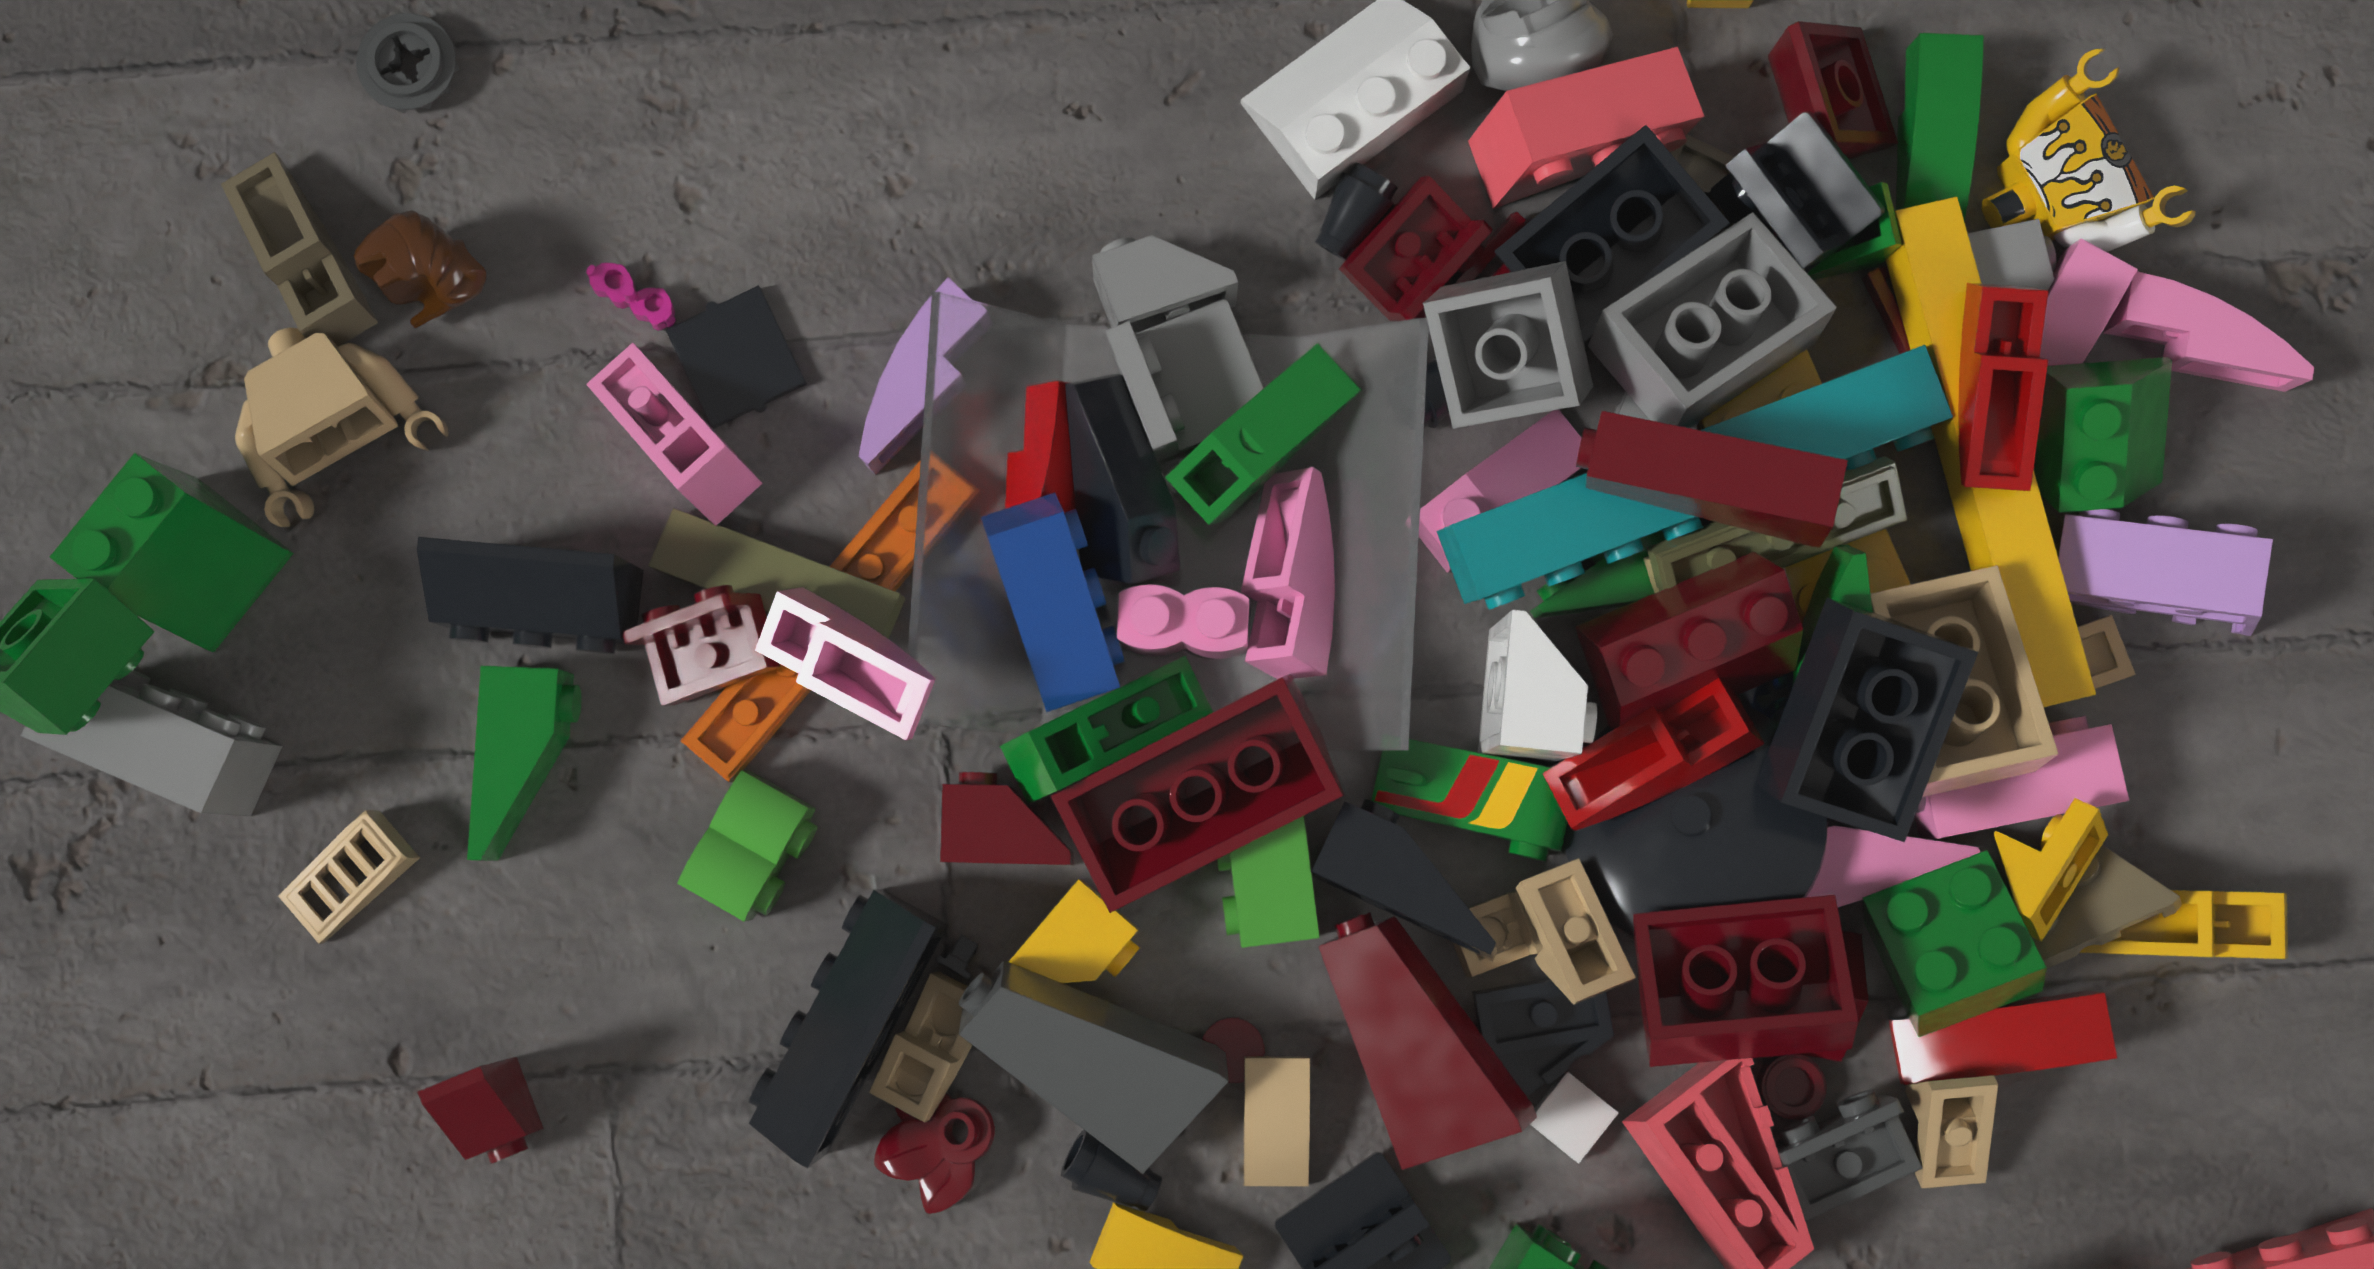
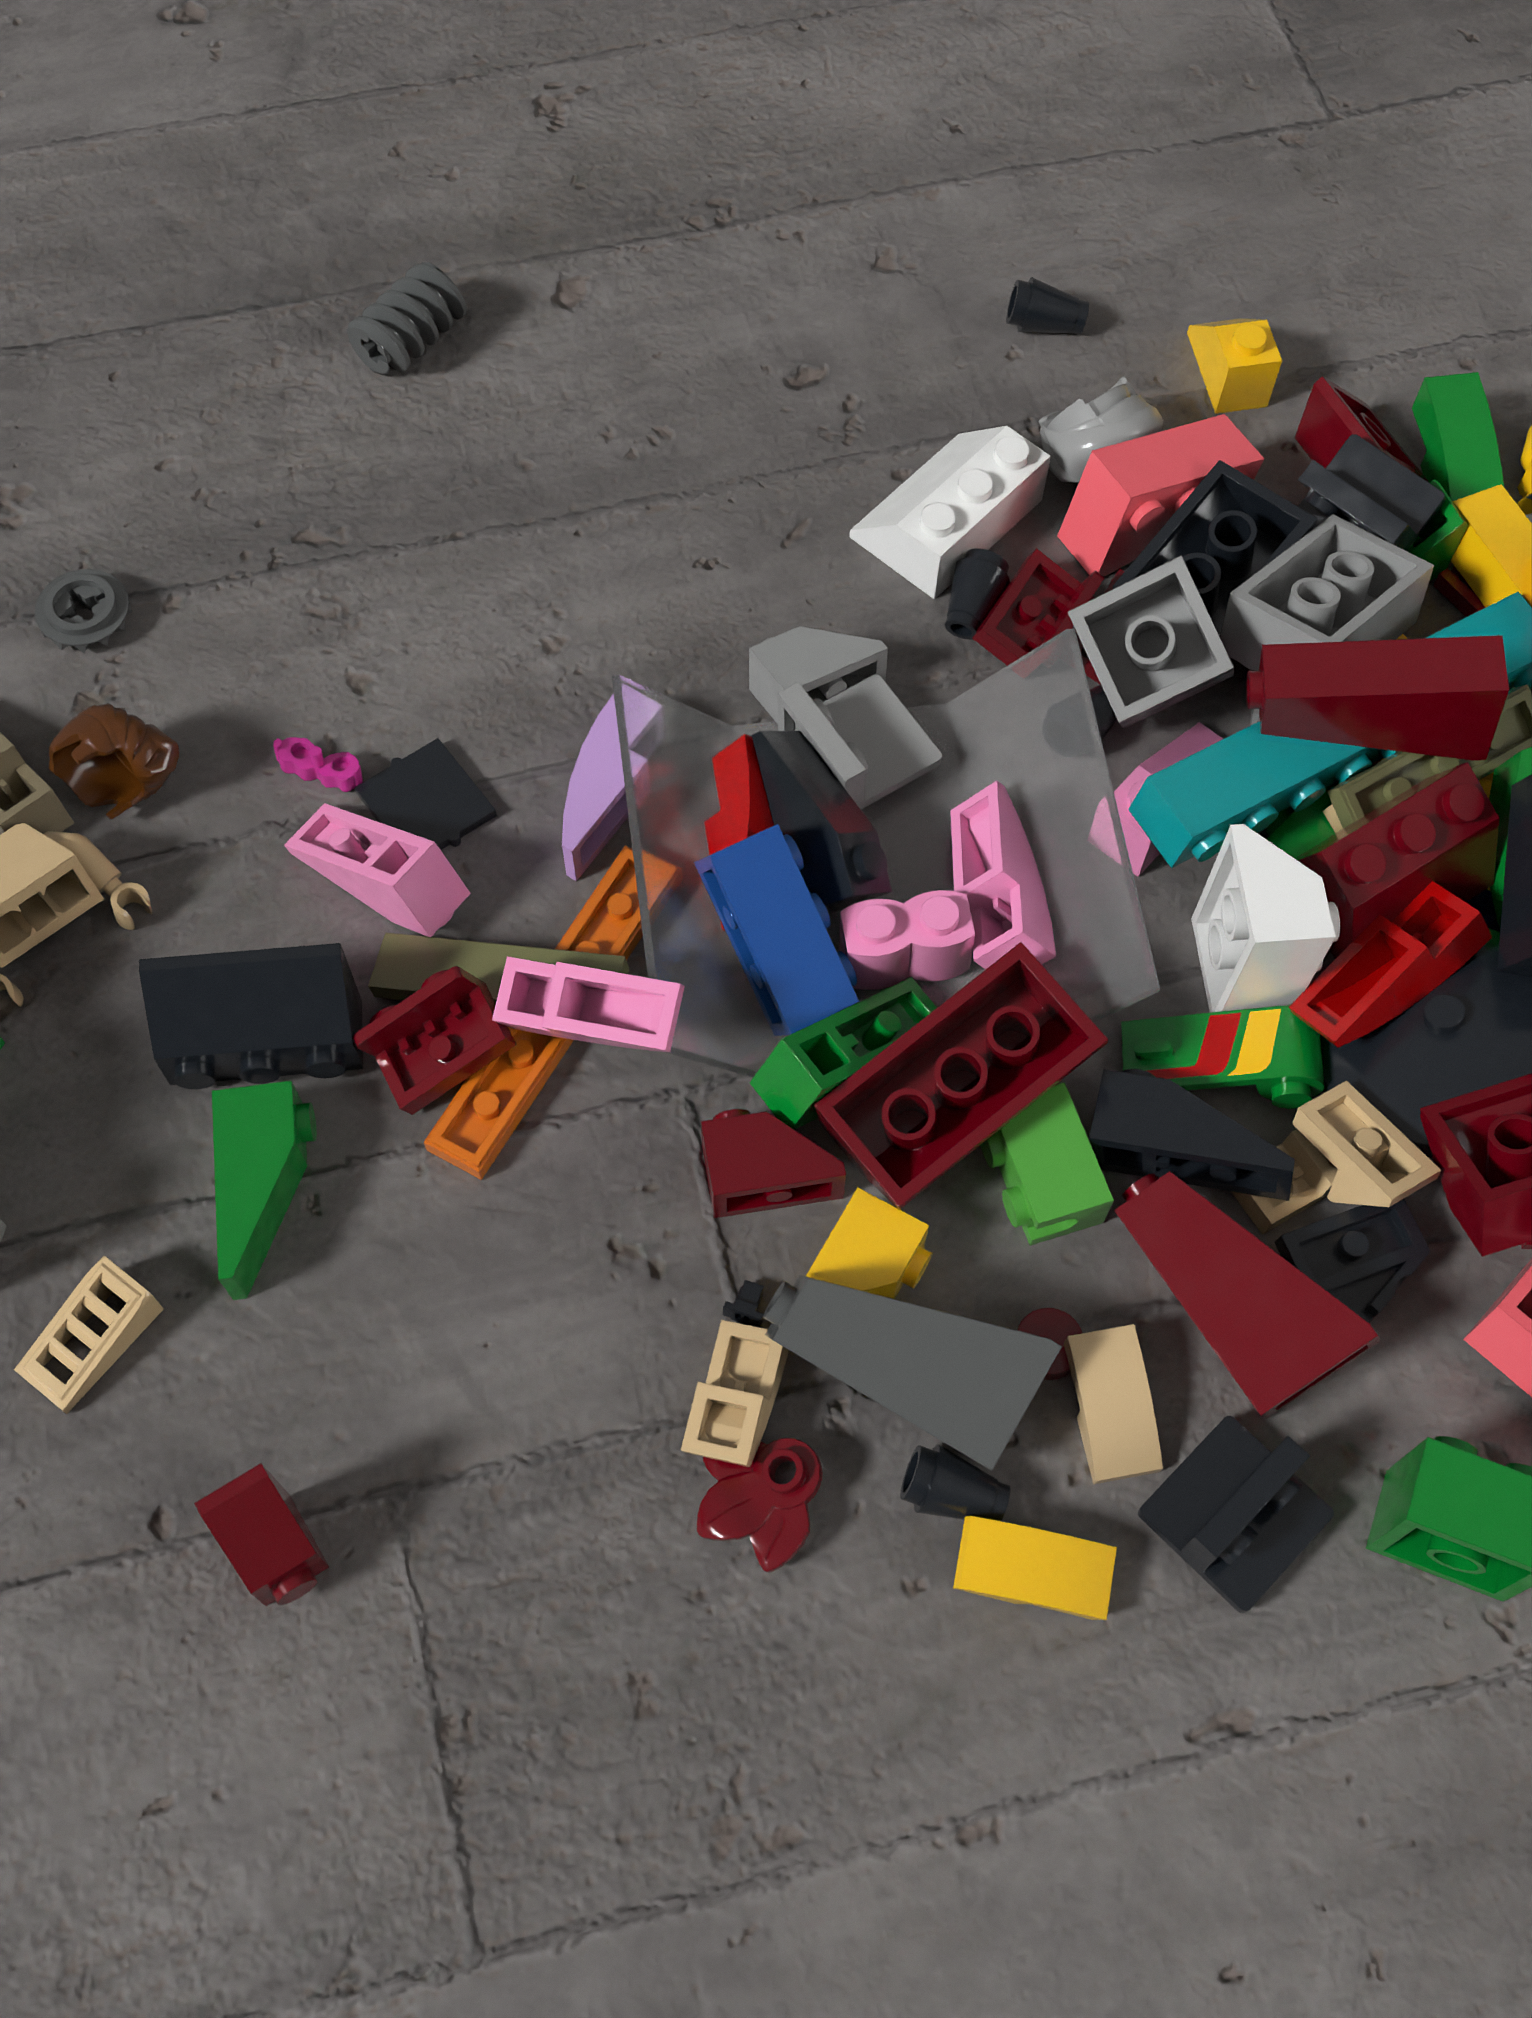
camera: 15 degrees left, 20 degrees down
(748, 846) = (509, 1227): bright green brick -> none
(846, 1026) = (646, 1379): black slope -> none
(1263, 435) = (940, 767): green slope -> none
(1572, 1116) = (1411, 1347): white tile -> none

